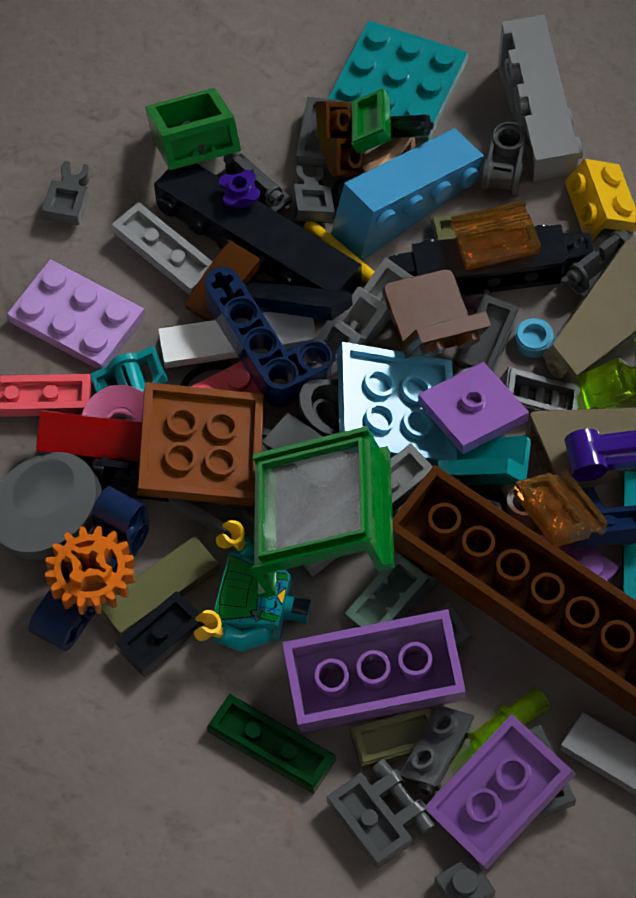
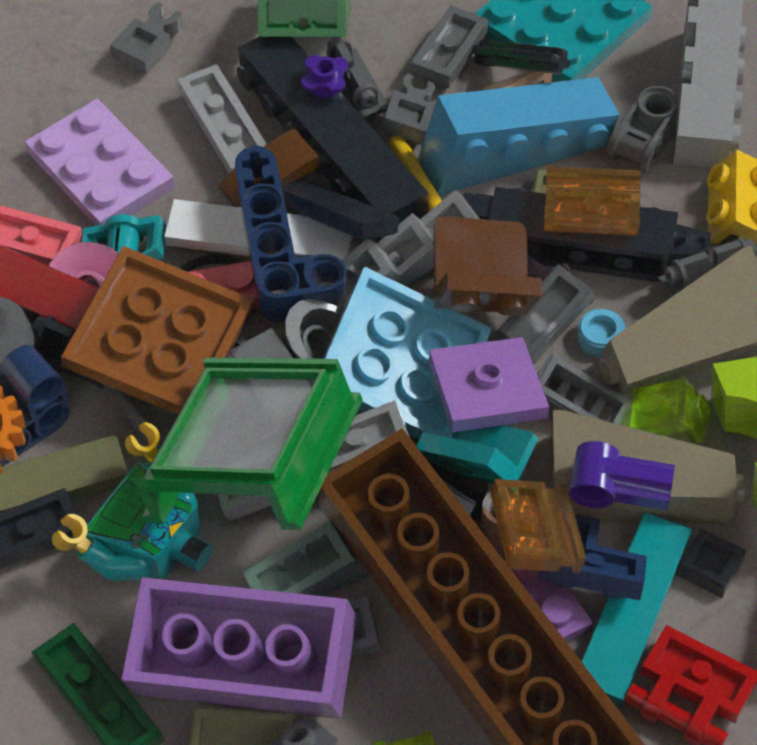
camera: 20 degrees right, 5 degrees down
(335, 138) = (461, 51): reddish brown slope -> none
(370, 121) = (503, 43): green tile -> none

